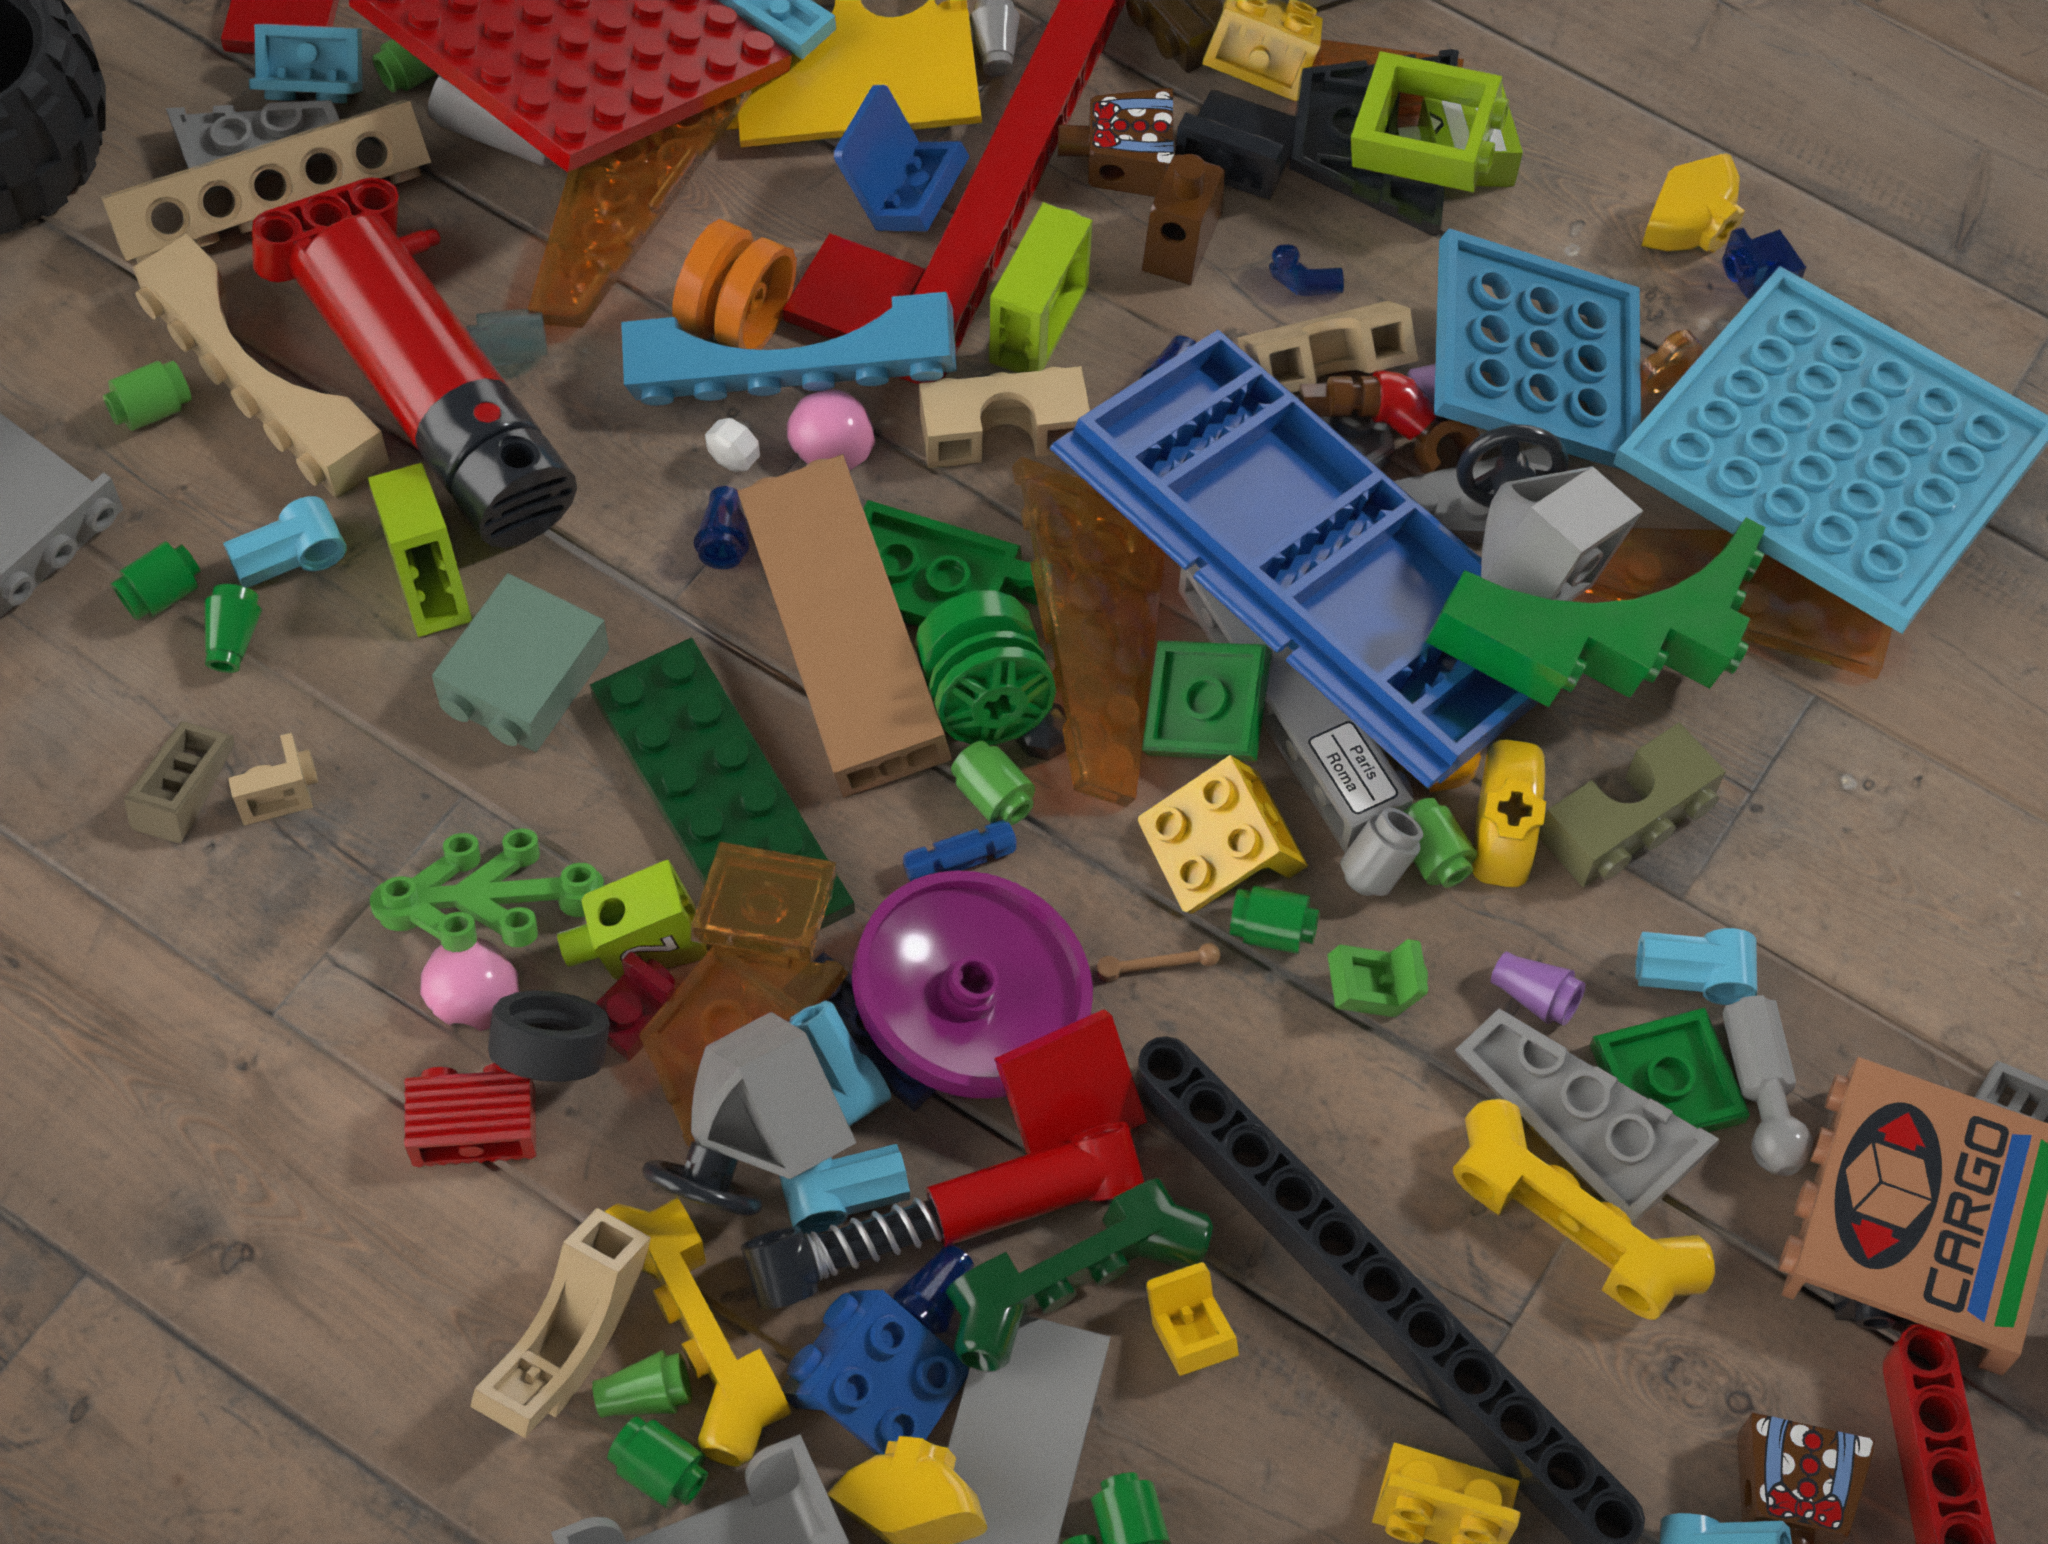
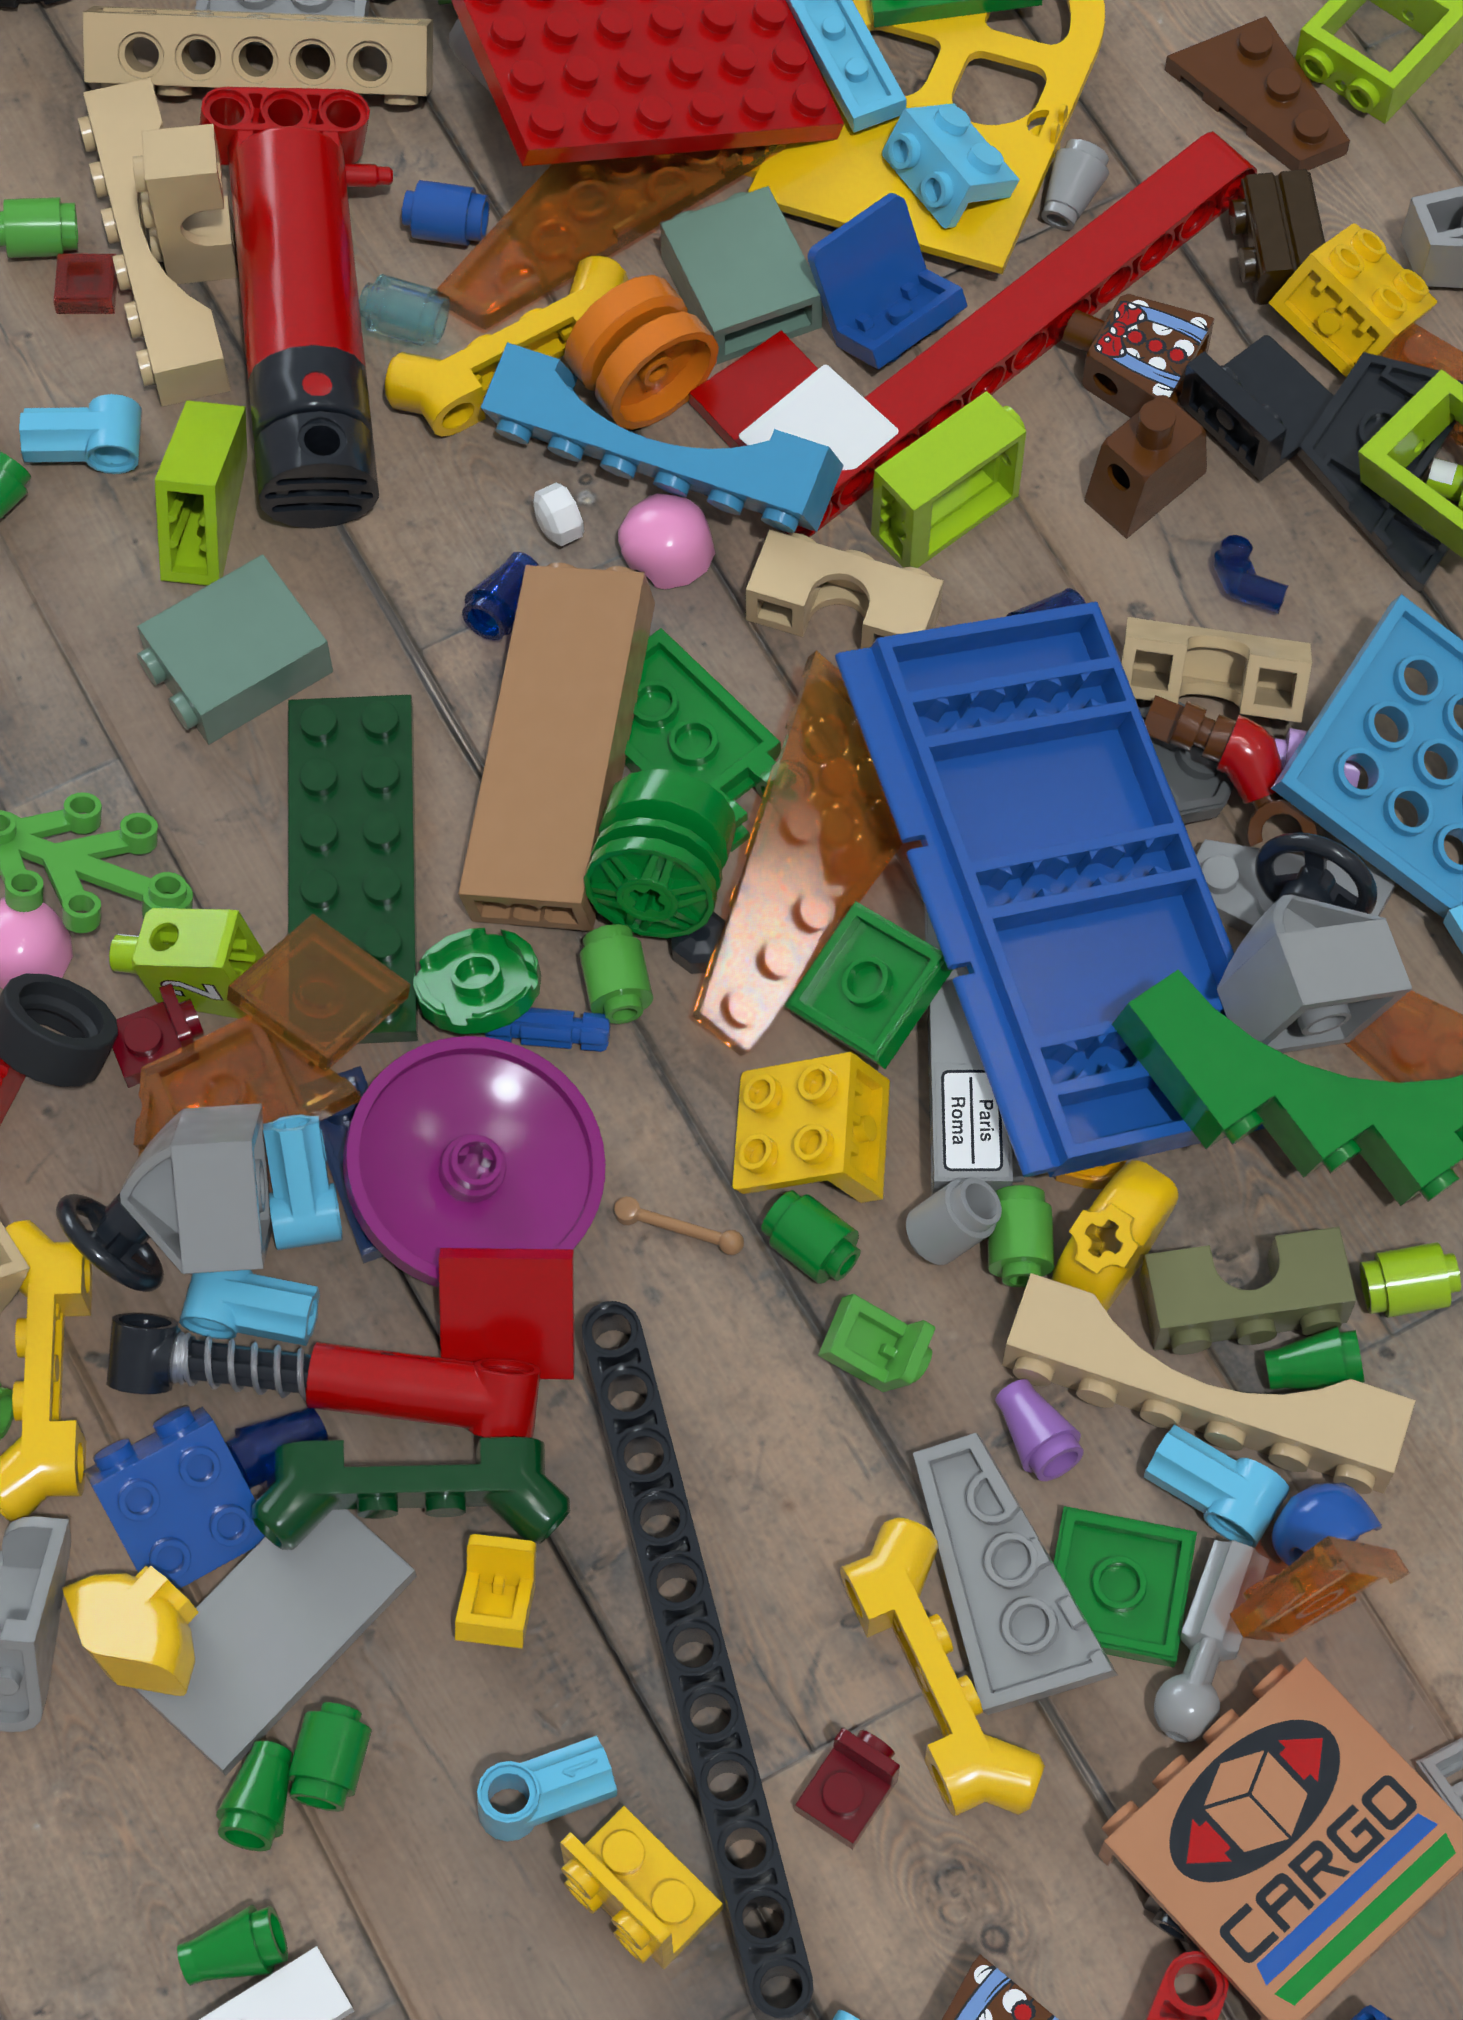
camera: 30 degrees right, 5 degrees up
(214, 425) = (85, 284): none -> clear red tile
(279, 298) = (186, 204): none -> tan arch
(499, 248) = (446, 213): none -> blue brick
(589, 382) = (453, 388): none -> yellow plate
(774, 194) = (741, 272): none -> sand green brick
(883, 839) = (477, 981): none -> green tile
(893, 52) = (947, 161): none -> medium azure bracket
(911, 271) = (827, 413): none -> white sticker
(1324, 1458) = (552, 1785): none -> medium azure piece
(1528, 905) = (1334, 1430): none -> tan arch
(1561, 1335) = (850, 1786): none -> dark red bracket
(1717, 835) = (1316, 1361): none -> green cone
(1748, 741) = (1409, 1280): none -> lime brick
(1800, 950) = (1319, 1513): none -> blue hair
(1843, 980) = (1314, 1588): none -> clear orange wing

